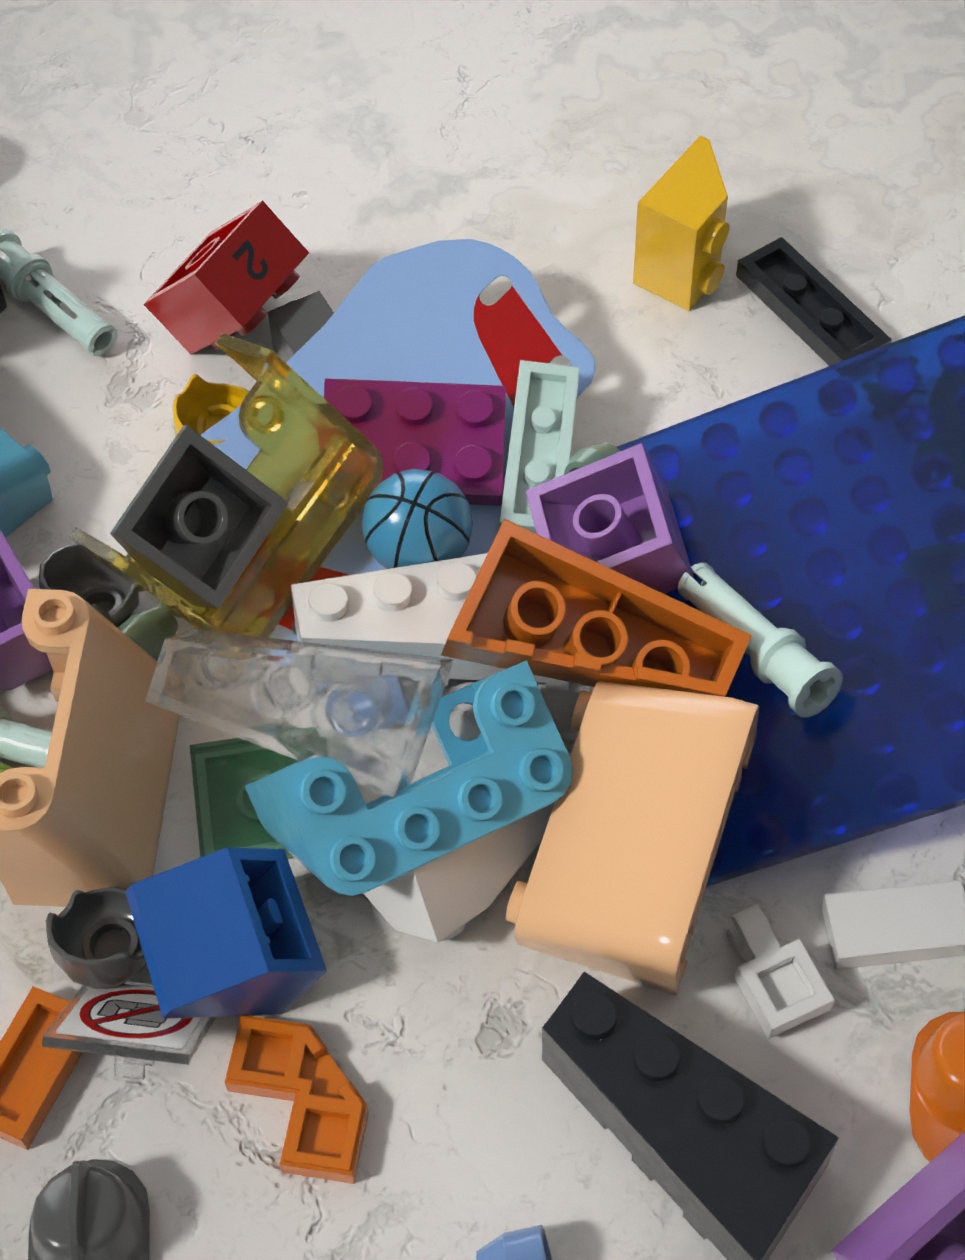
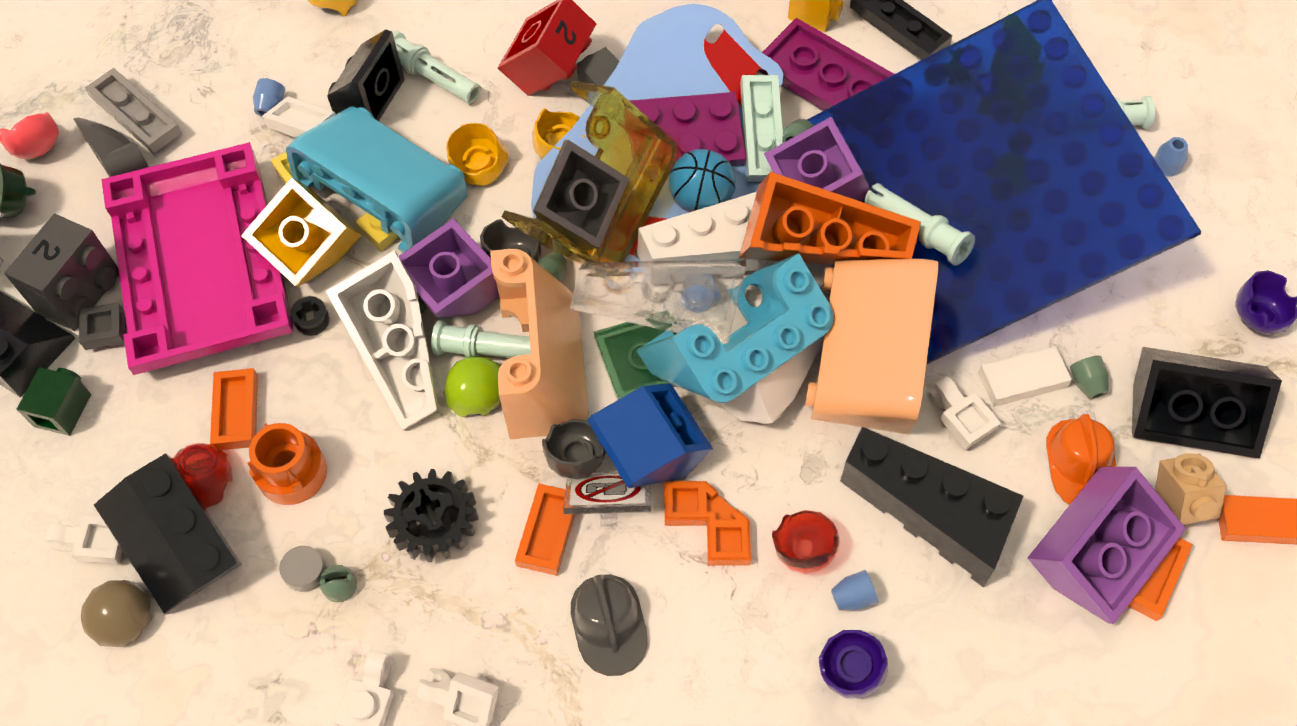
camera: 10 degrees left, 5 degrees up
(78, 434) = (477, 153): none -> yellow hair
(449, 1158) = (806, 541): none -> clear red hair
(662, 361) = (821, 66): none -> magenta plate

